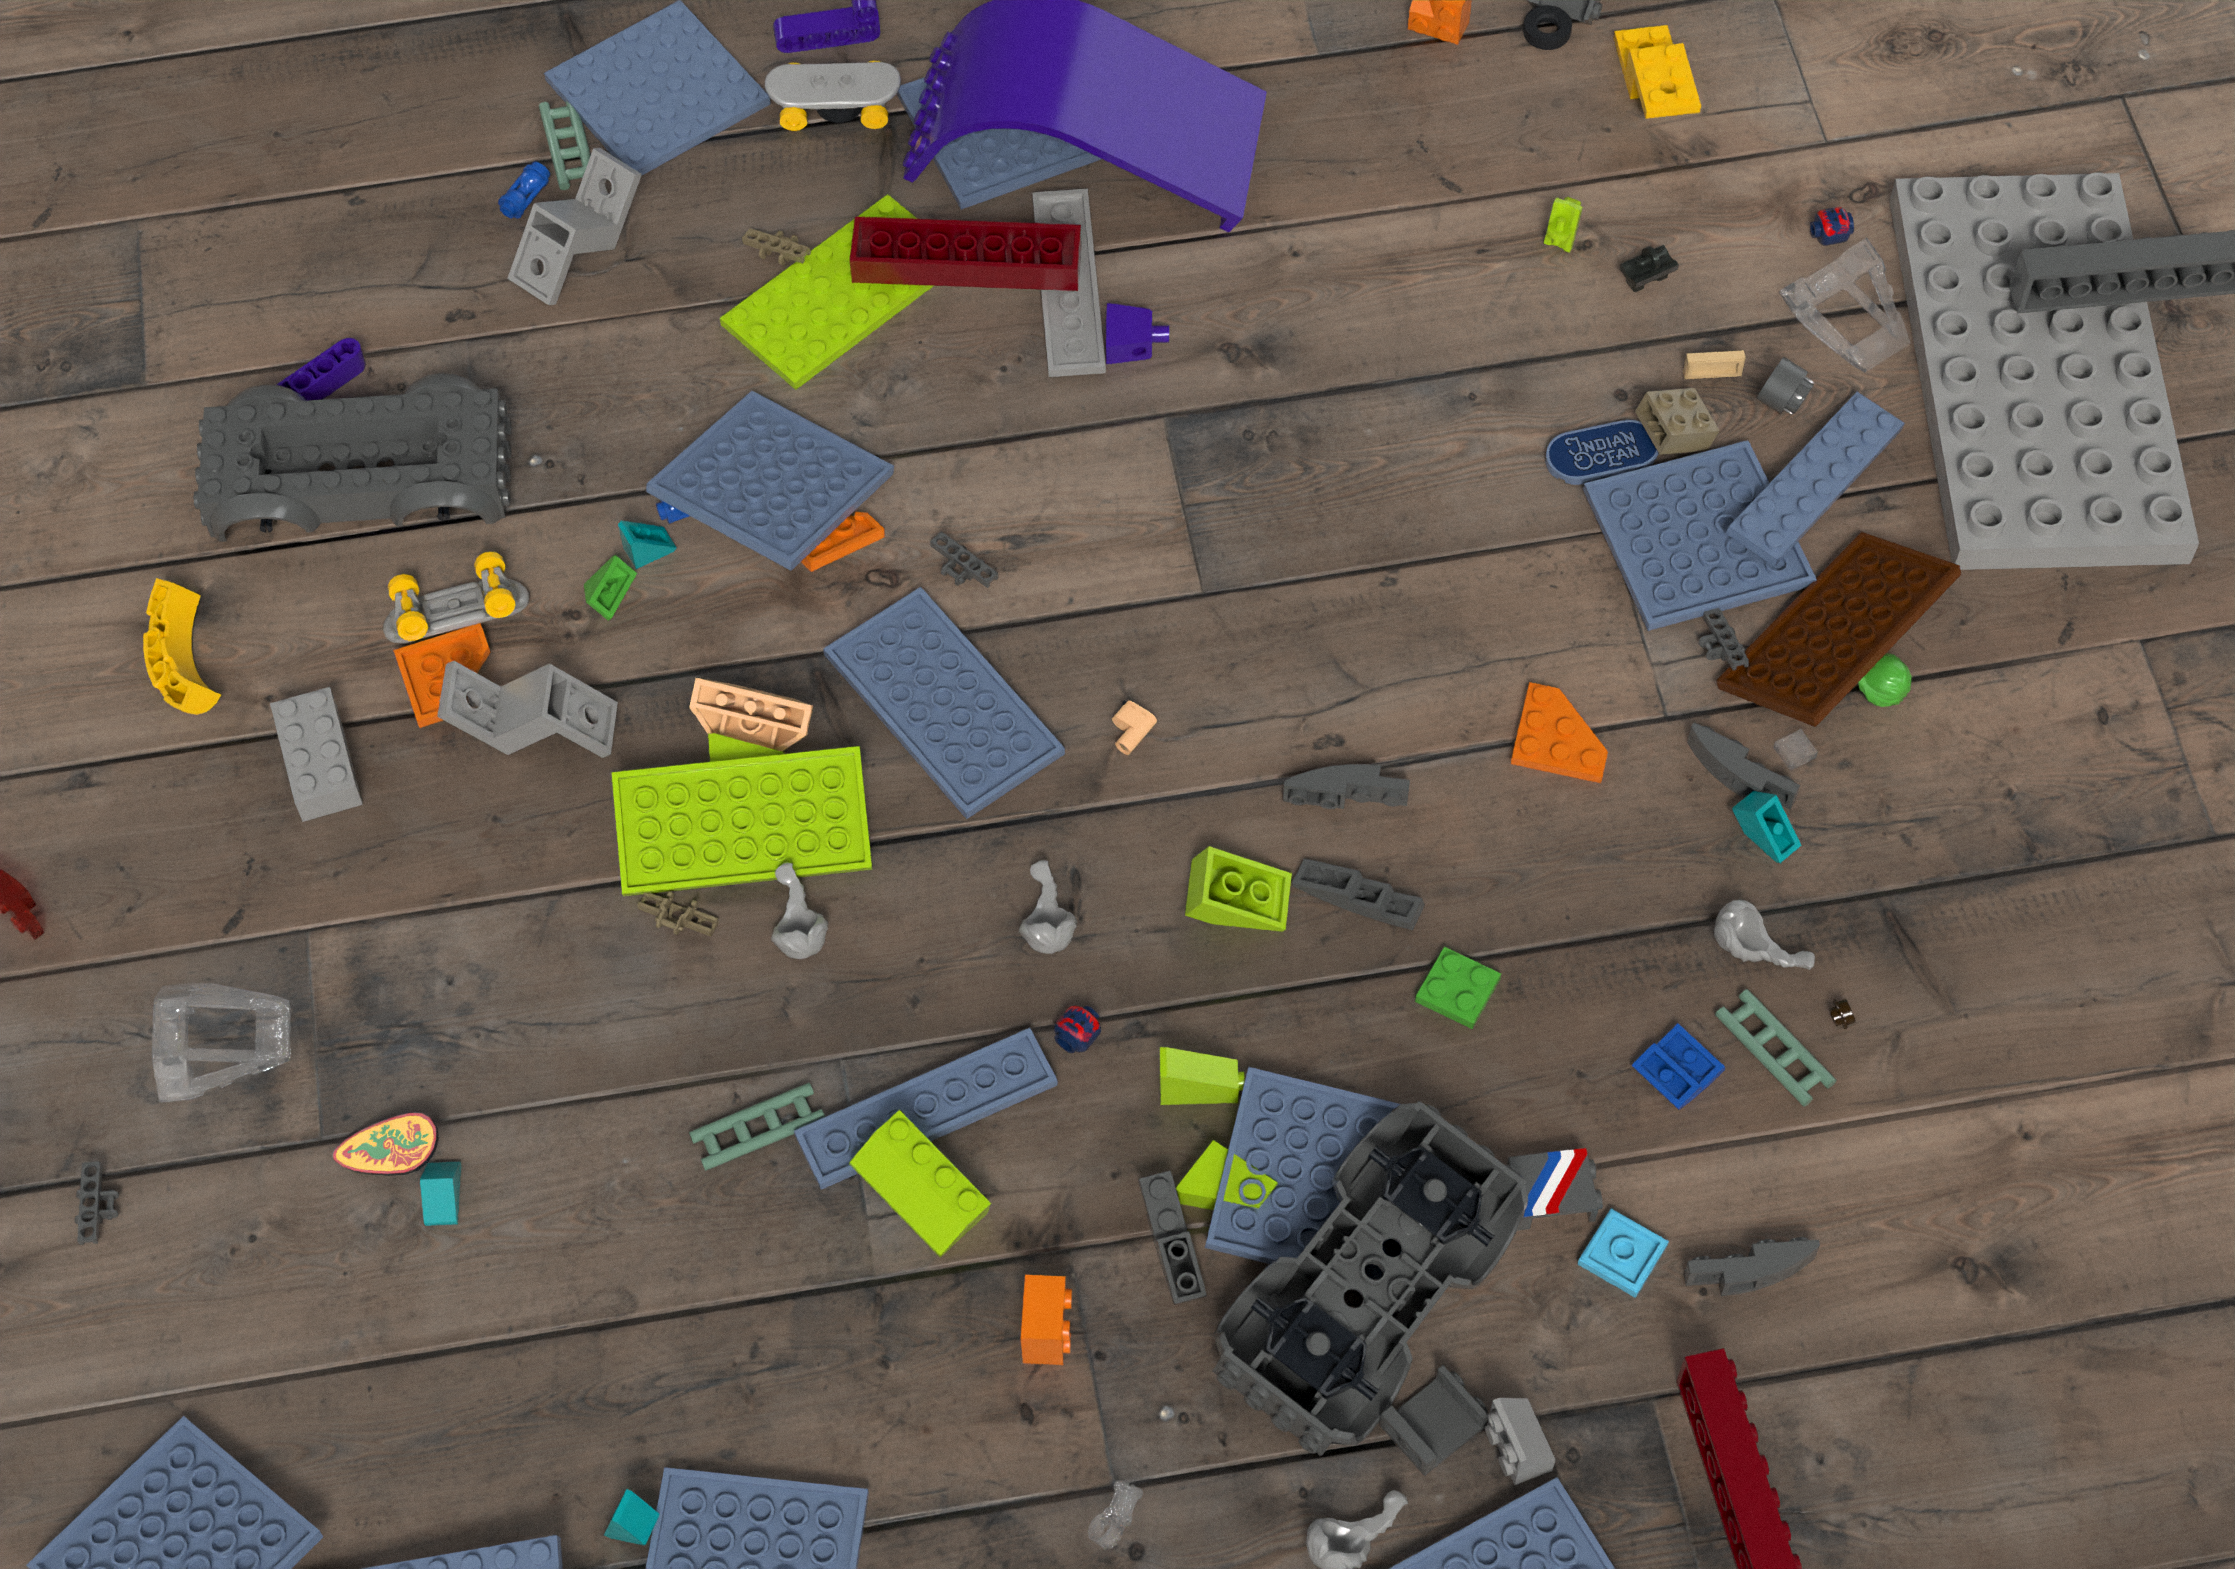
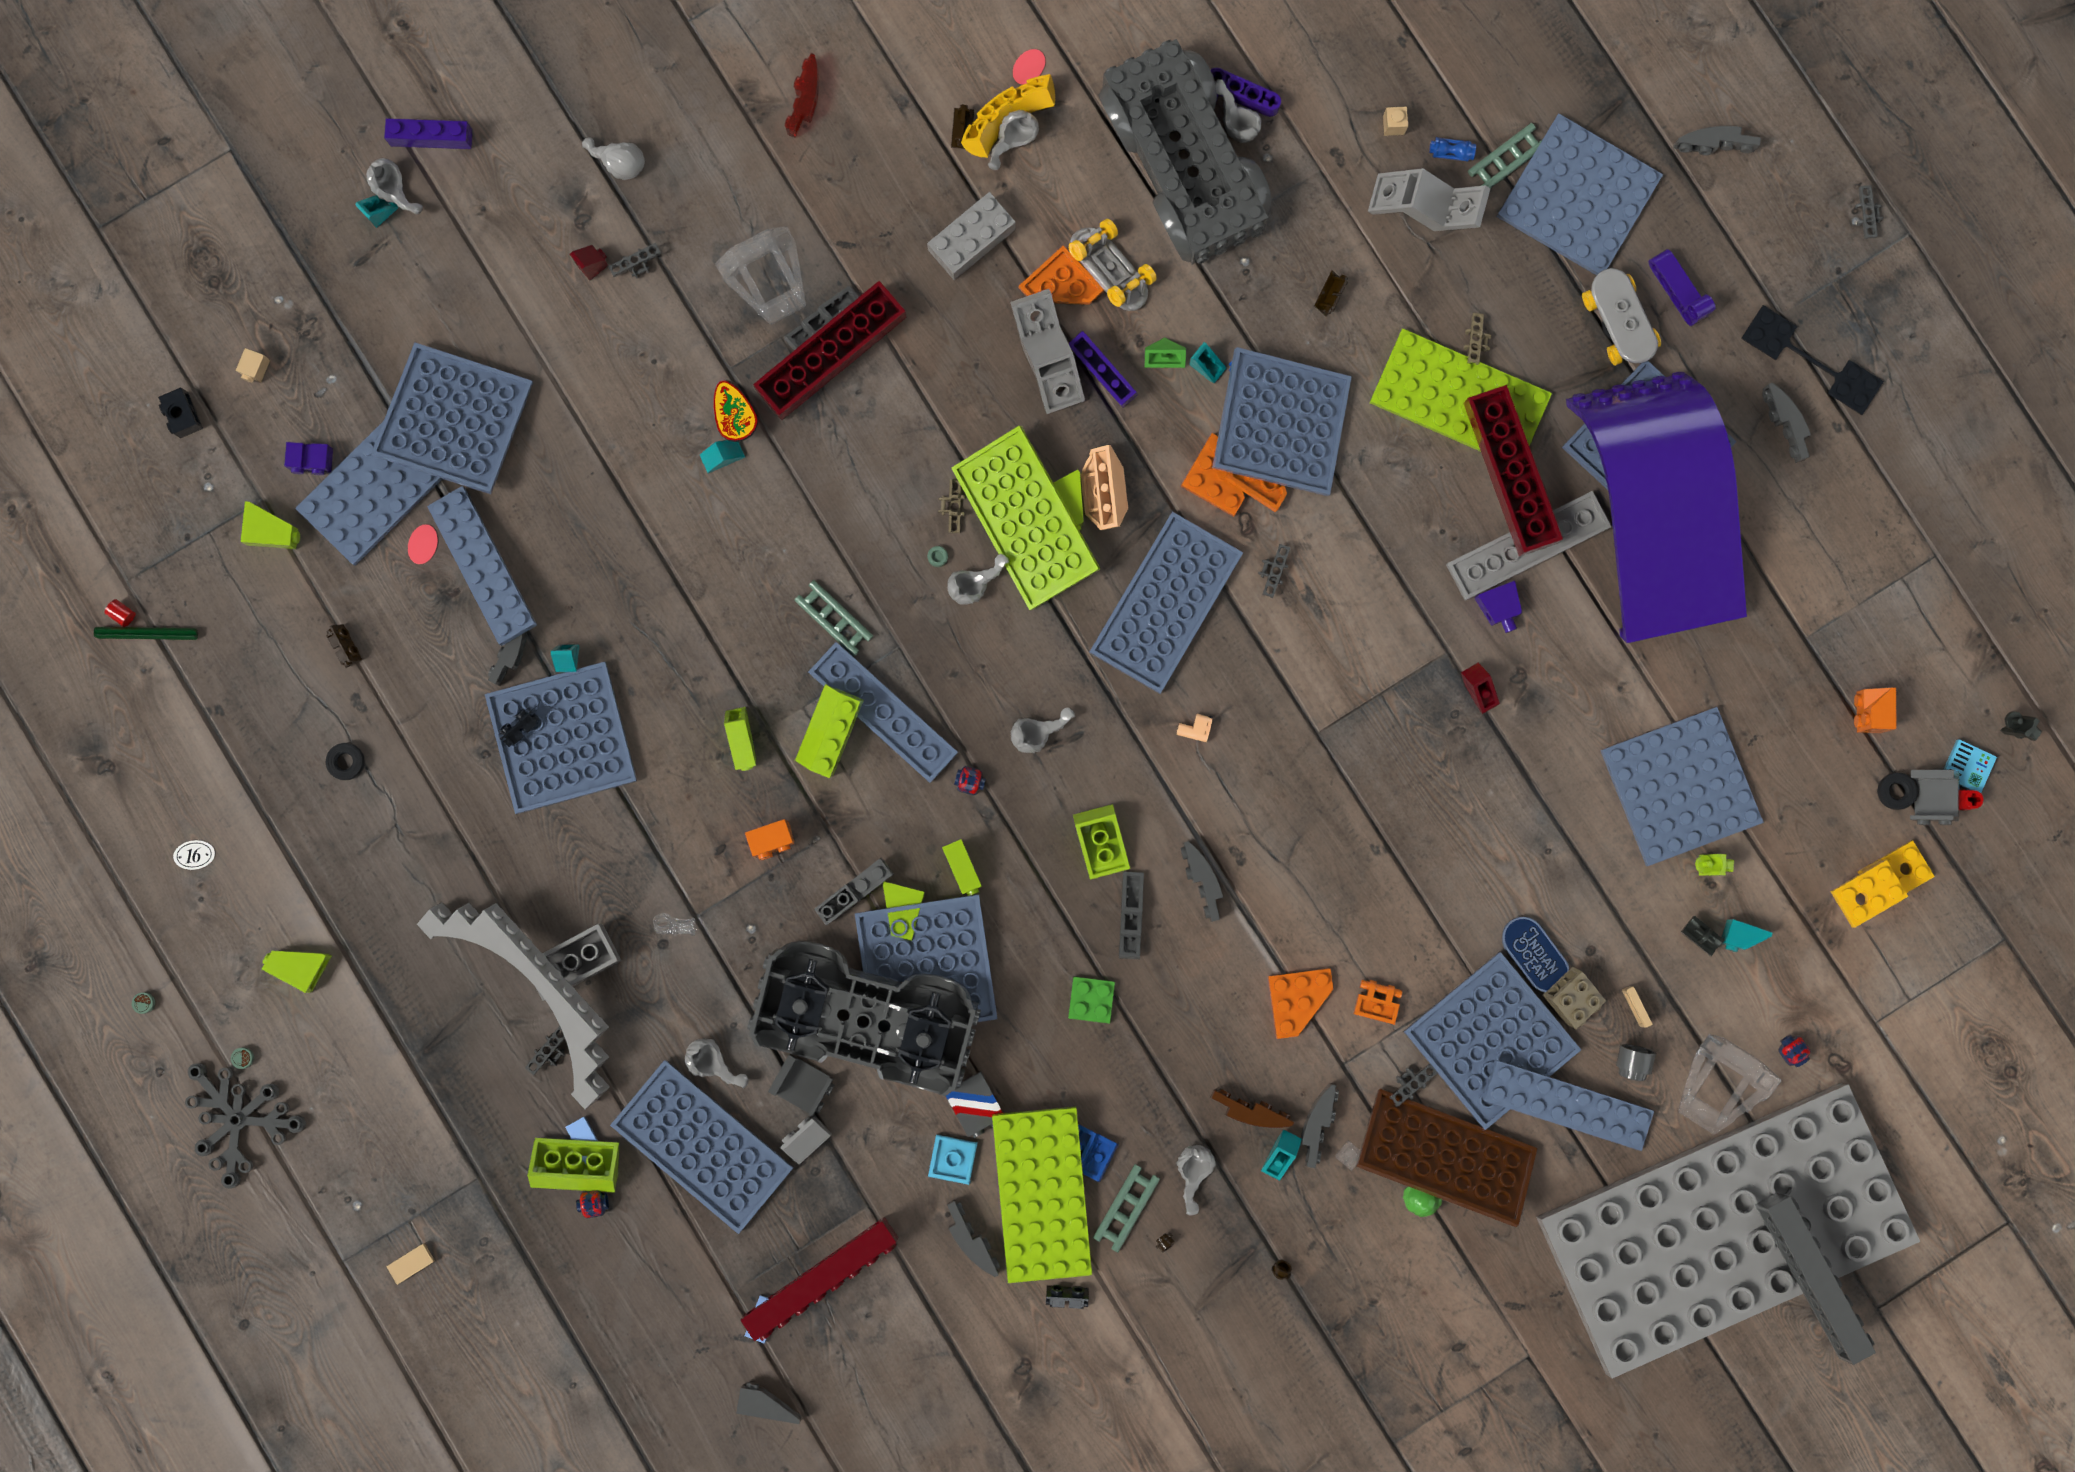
camera: 65 degrees right, 25 degrees up
(55, 1265) = (589, 261): none -> dark red slope
(127, 613) = (1028, 66): none -> coral sticker
(160, 716) = (961, 120): none -> dark brown hinge
(206, 648) = (1016, 130): none -> light grey hair
(322, 984) = (821, 317): none -> dark grey slope
(357, 383) = (1239, 122): none -> light grey hair
(373, 986) = (830, 350): none -> dark red brick
(452, 234) = (1395, 121): none -> tan brick
(597, 655) = (1102, 369): none -> dark purple brick
(640, 382) = (1328, 297): none -> dark brown hinge
(737, 960) = (937, 556): none -> sand green tile
(802, 595) = (1210, 482): none -> orange plate
(873, 1312) = (740, 738): none -> lime slope
(1226, 389) = (1480, 687): none -> dark red slope
(1449, 232) = (1681, 786): none -> sand blue plate
(1603, 650) = (1376, 1008): none -> orange plate
(1664, 227) = (1742, 935): none -> teal slope
(1695, 843) = (1258, 1115): none -> reddish brown slope
(1718, 1144) = (1042, 1194): none -> lime plate
(1884, 1155) = (1077, 1296): none -> black hinge
(1929, 881) = (1281, 1269): none -> dark brown plate

